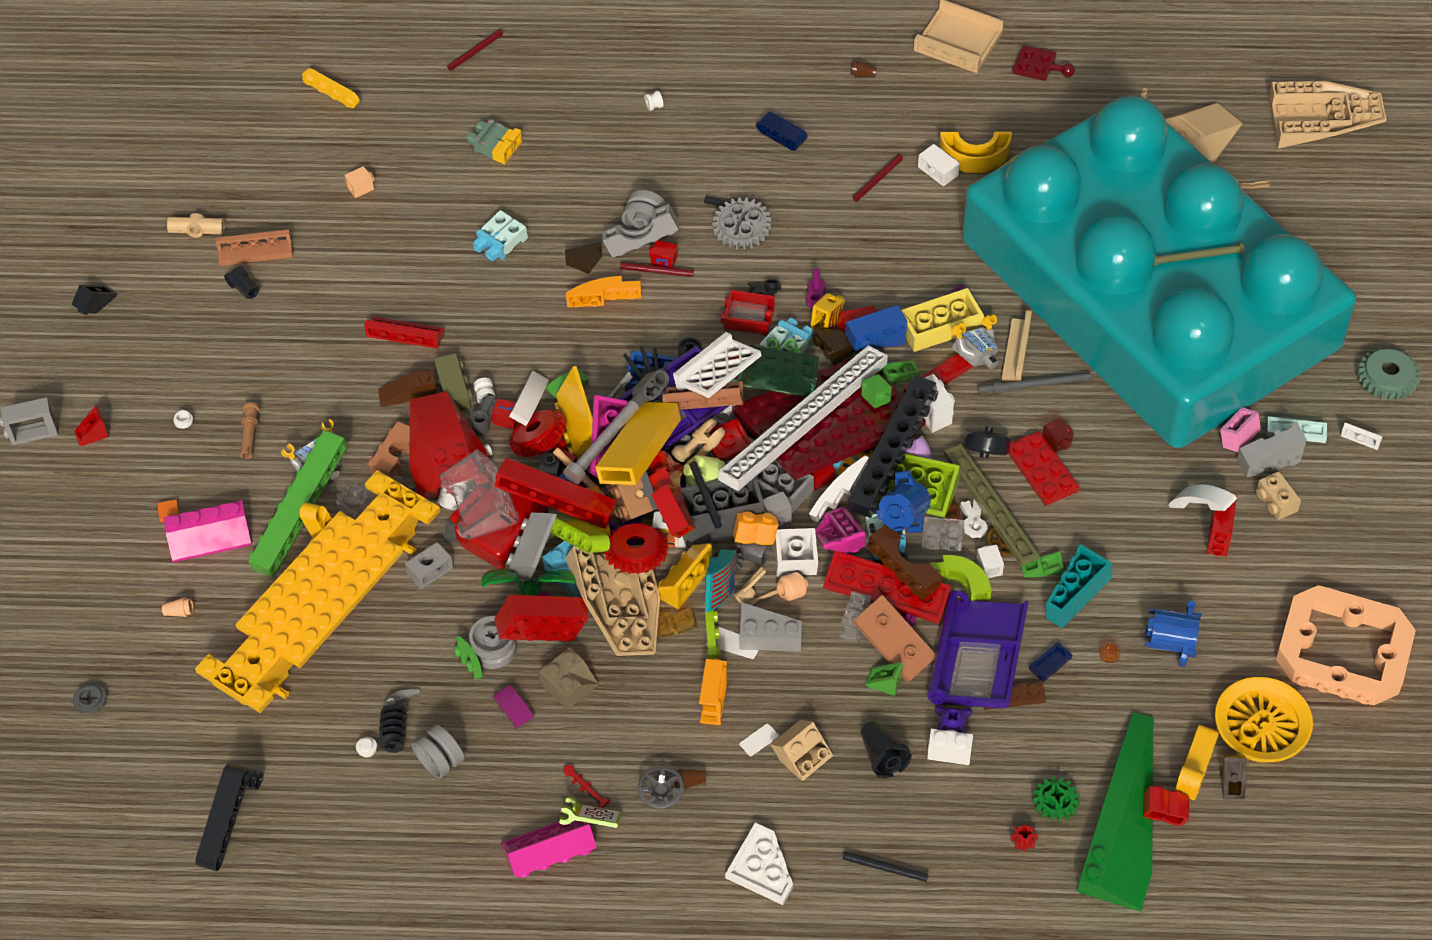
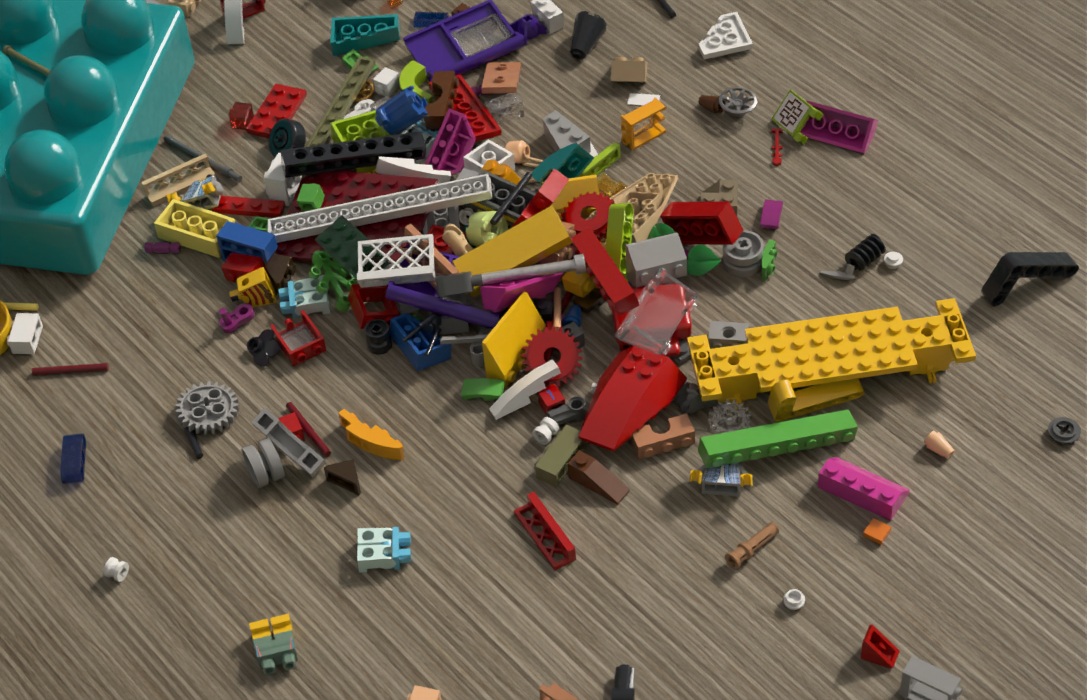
camera: 130 degrees left, 5 degrees down
(438, 751) = (853, 209): light grey wheel -> none
(886, 678) = (531, 67): bright green slope -> none

